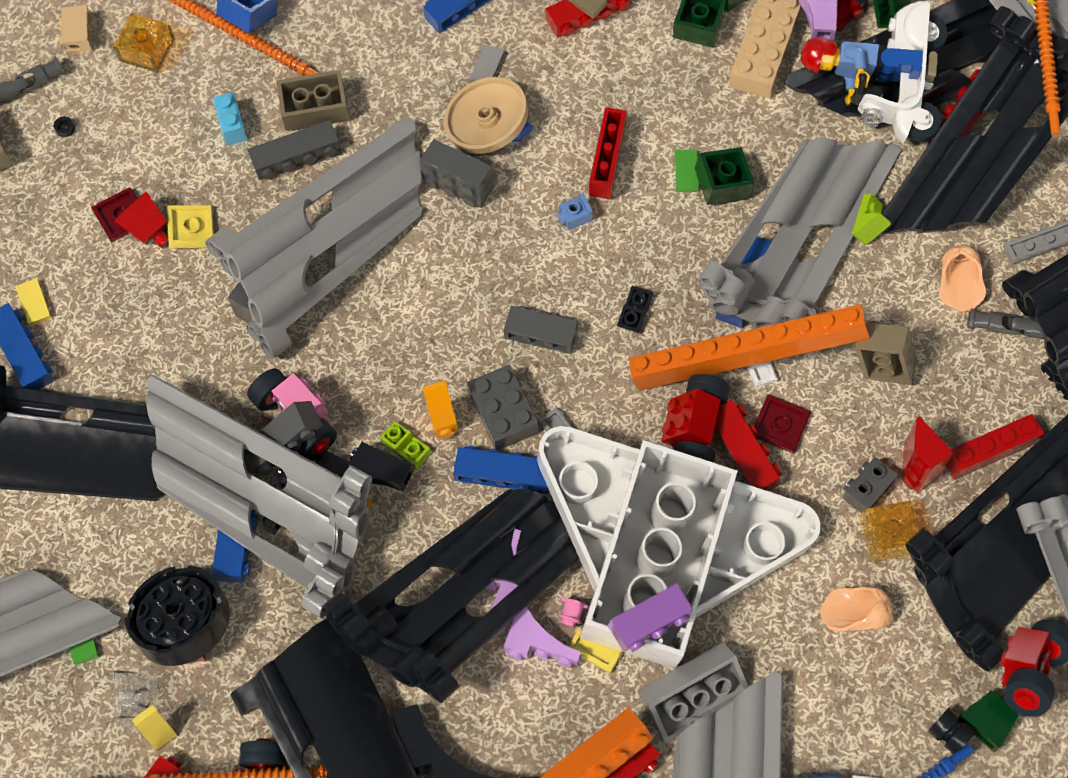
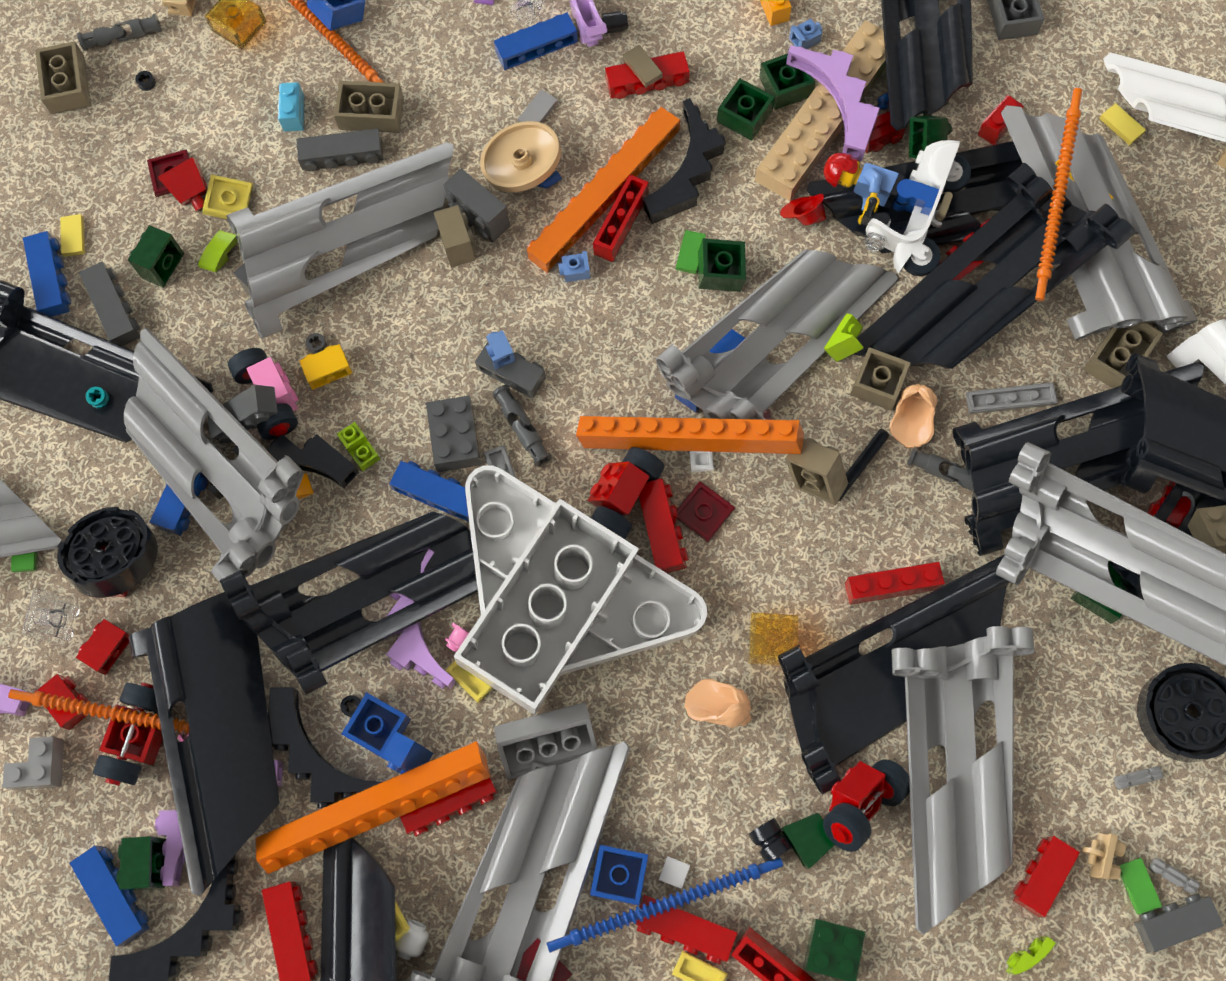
camera: 15 degrees right, 5 degrees up
(97, 363) = (109, 304): none -> dark grey brick
(117, 466) = (95, 391): none -> teal bush
(134, 301) = (156, 256): none -> dark green brick
(154, 727) = (58, 647): light yellow tile -> none
(195, 282) = (216, 251): none -> lime slope
(199, 715) = (103, 647): none -> red brick
(329, 344) = (312, 337): none -> dark grey bush
(347, 372) = (325, 366): none -> yellow brick
(440, 410) = (393, 422): light orange slope -> none
(444, 209) = (455, 235): none -> dark tan brick
(476, 702) = (344, 708): none -> black bush
(515, 722) = (375, 724): none -> blue brick
(528, 310) = (499, 349): none -> medium blue brick
(556, 740) = (405, 754): none -> blue brick
(577, 390) = (523, 428): none -> dark grey piece
(579, 130) = (603, 189): none -> orange brick
(635, 309) = (603, 371): black slope -> none
(650, 618) = (513, 667): medium lavender brick -> none
(659, 113) = (681, 190): none -> black arch
(790, 102) = (806, 209): none -> red piece
(870, 485) = (767, 590): dark grey brick -> none
(916, 250) = (880, 378): none -> dark tan brick
(923, 456) = (823, 578): red slope -> none
(925, 330) = (865, 458): none -> black axle

